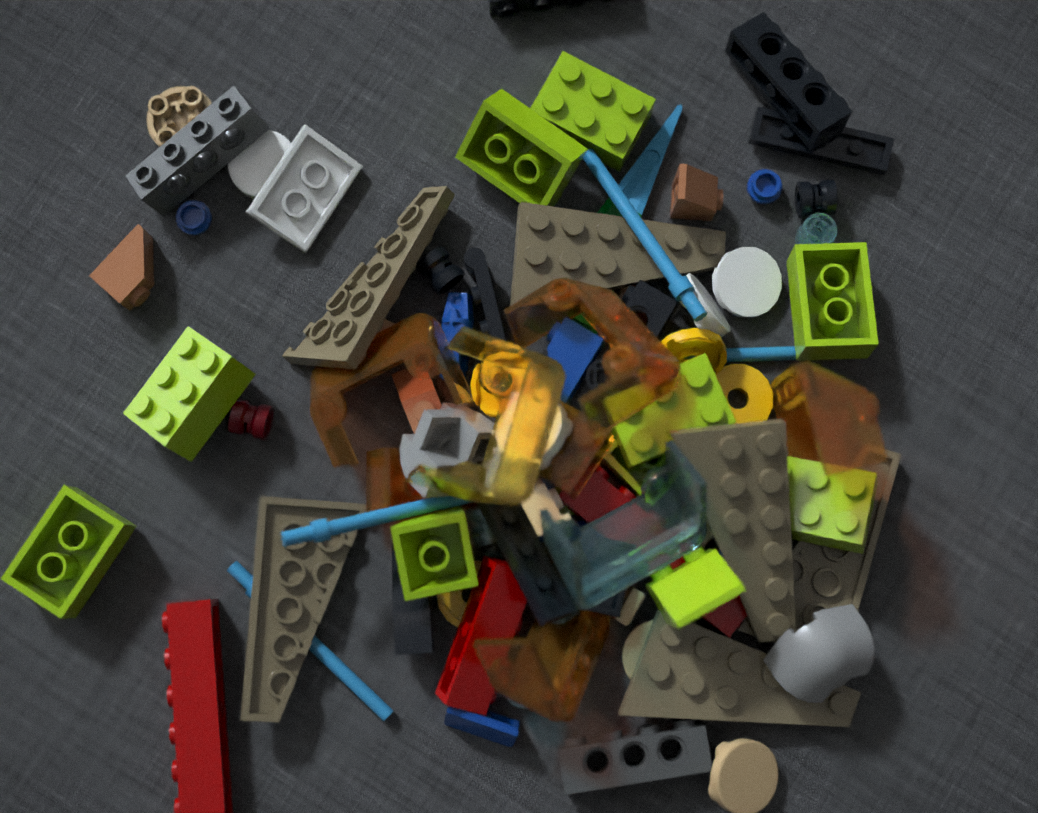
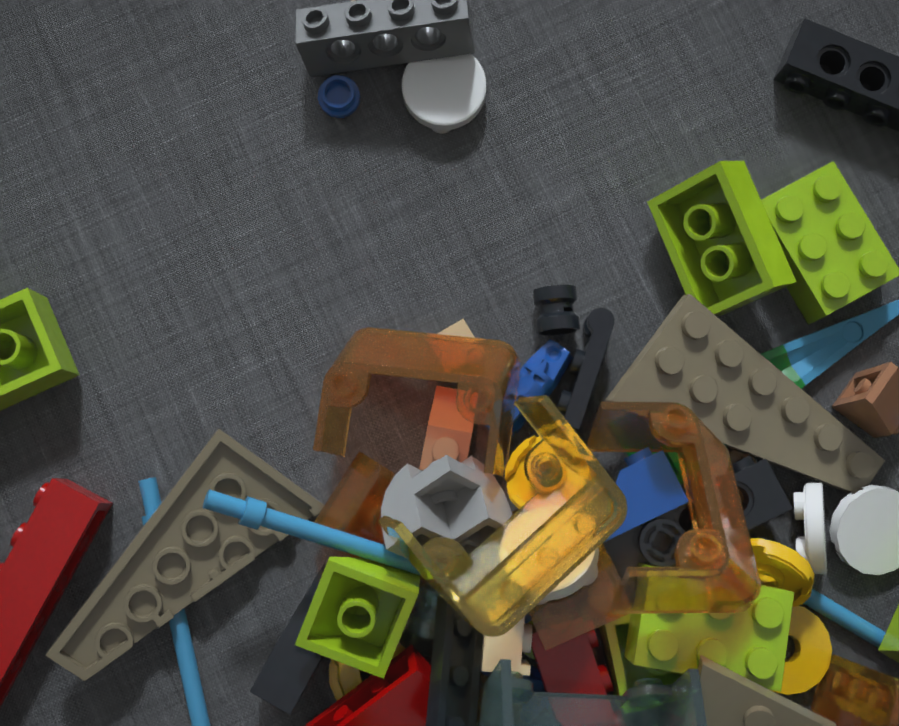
camera: 30 degrees right, 0 degrees up
(128, 269) = (239, 108): nougat slope -> none
(189, 394) = (215, 275): lime brick -> none
(251, 419) = (263, 340): dark red wheel -> none
(304, 188) = (469, 137): white tile -> none
(371, 289) = (473, 285): dark tan wing -> none
(679, 285) = (806, 496): dark azure bar -> none

